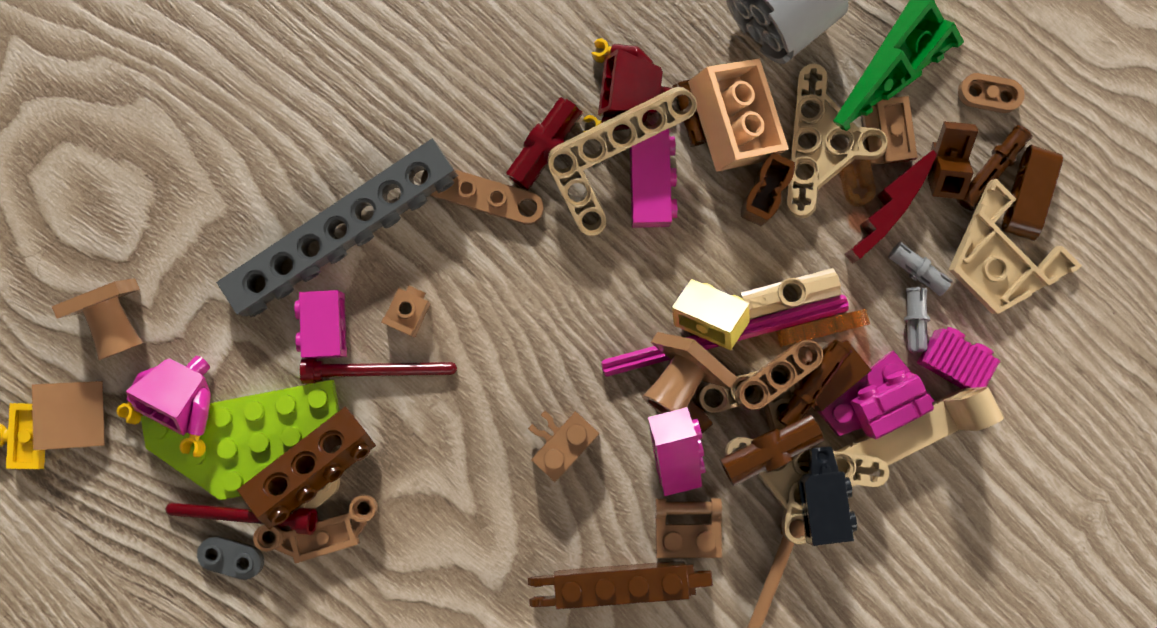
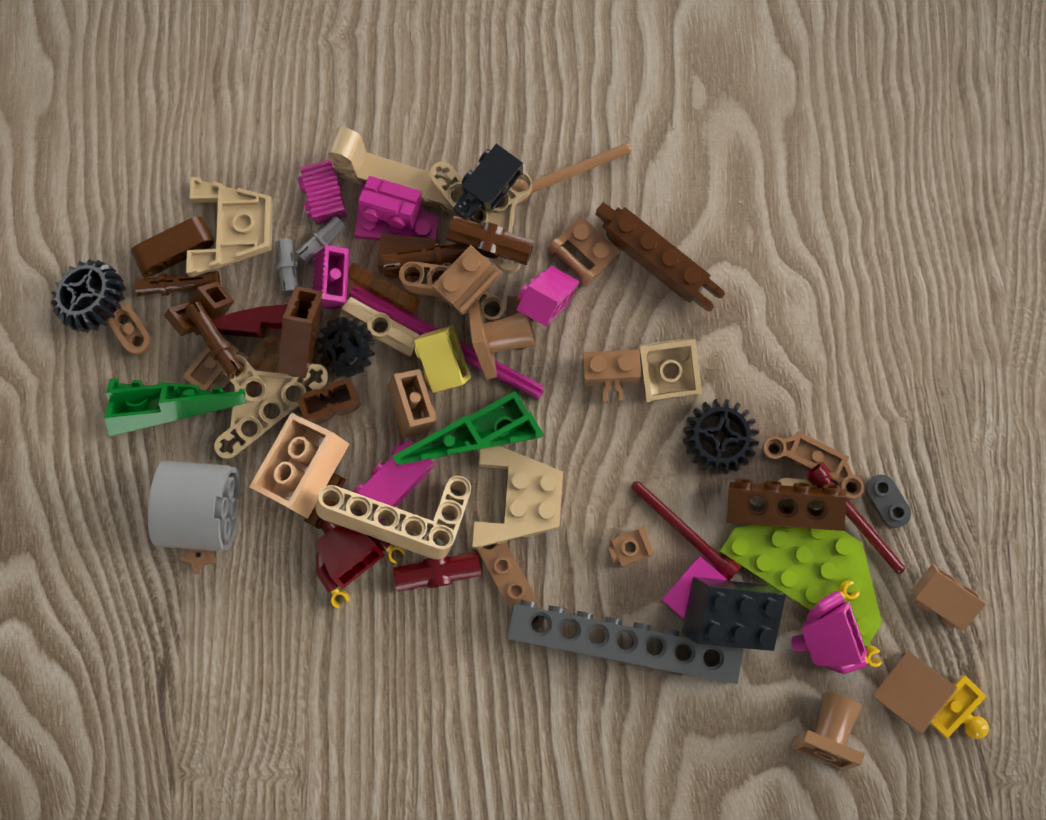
camera: 130 degrees left, 5 degrees down
(106, 520) = (948, 598): none -> medium nougat brick
(268, 332) = (733, 614): none -> black brick
(427, 489) = (732, 437): none -> black gear
(515, 493) = (670, 369): none -> tan slope
(526, 273) = (531, 498): none -> tan wing
(613, 299) = (492, 426): none -> green wedge
(700, 255) = (411, 403): none -> medium nougat brick
(756, 393) = (466, 280): none -> medium nougat plate
(802, 248) = (347, 345): none -> black gear
(850, 217) = (300, 332): none -> reddish brown brick
(874, 293) = (331, 275): none -> dark pink brick
(899, 140) = (219, 347): none -> reddish brown pin
(1057, 64) = (88, 295): none -> black gear

